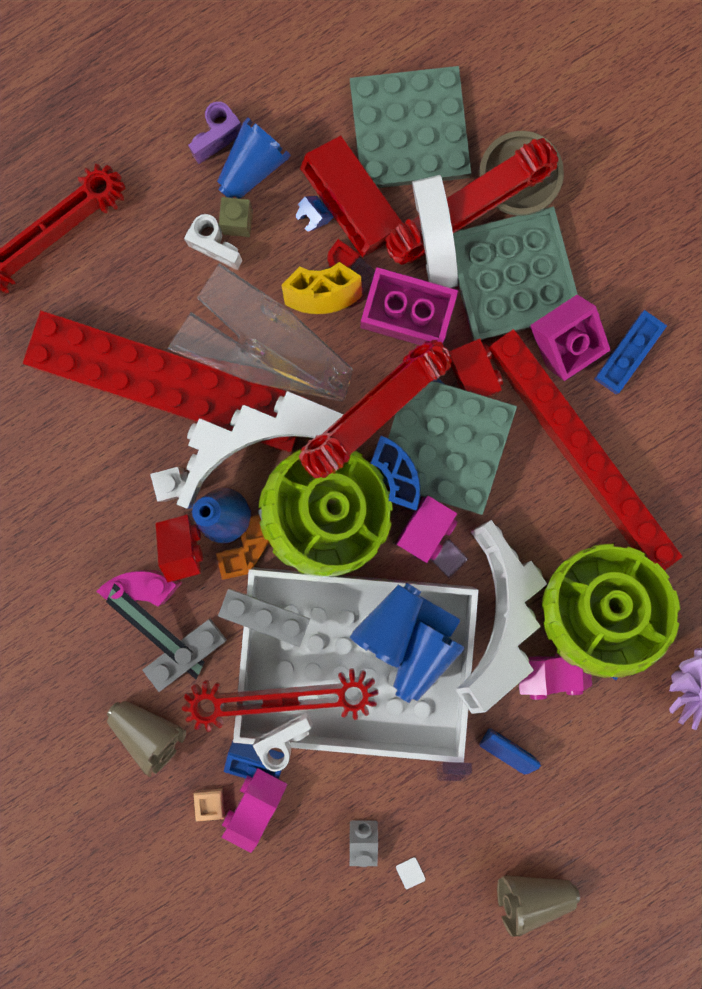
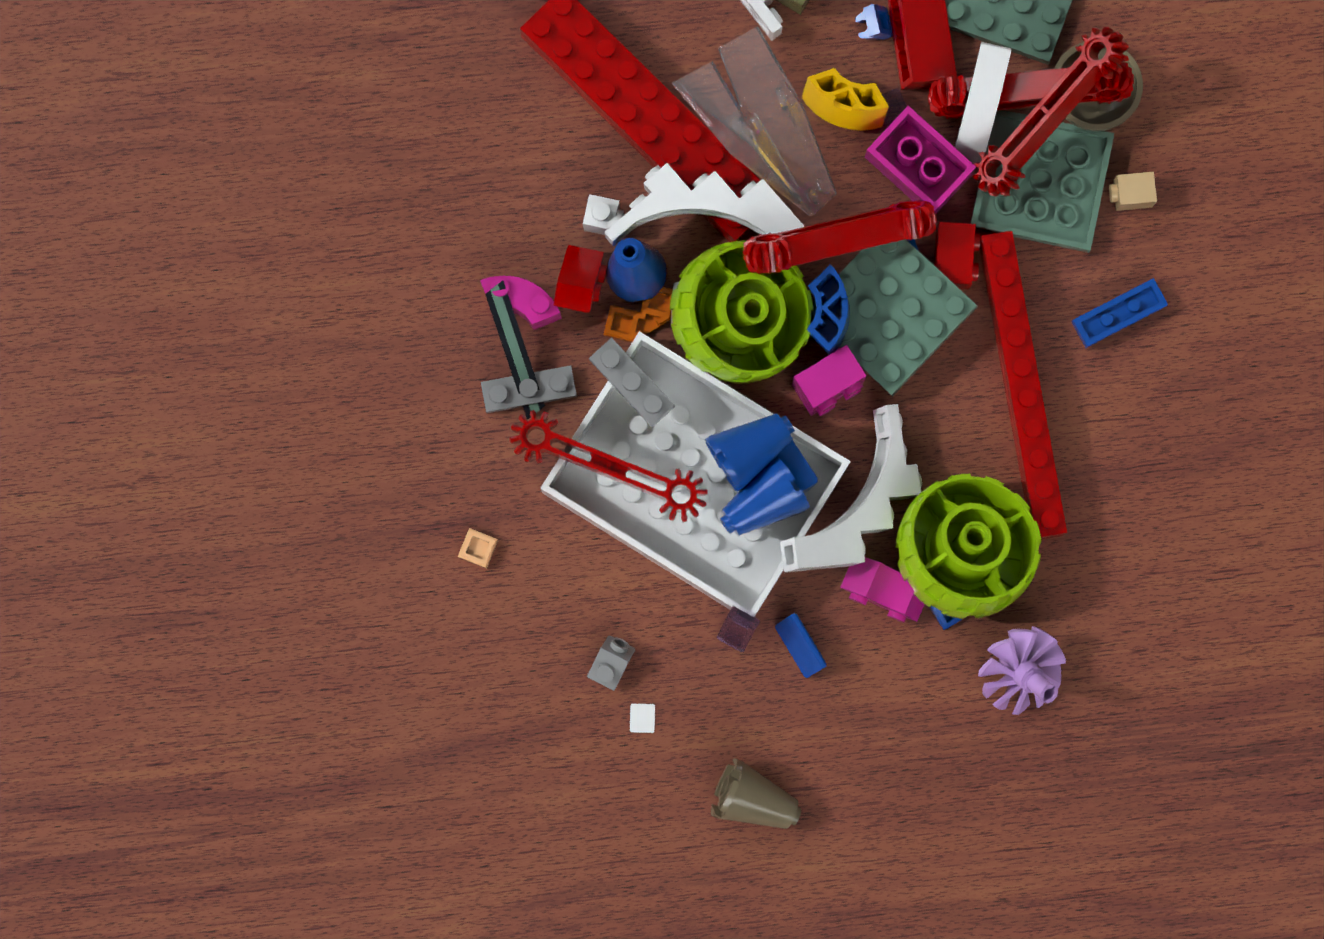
camera: 25 degrees right, 5 degrees down
(145, 735) = (454, 445): dark tan cone -> none
(244, 761) = (543, 530): blue slope -> none
(254, 810) = (521, 572): dark pink brick -> none
(278, 738) = (608, 501): white plate -> none
(342, 253) = (882, 76): red tile -> none
(449, 558) = (837, 426): clear purple tile -> none
(501, 207) = (1051, 111): none -> red arm
(570, 337) = (1064, 267): dark pink brick -> none
(592, 246) = (1133, 191): none -> tan brick

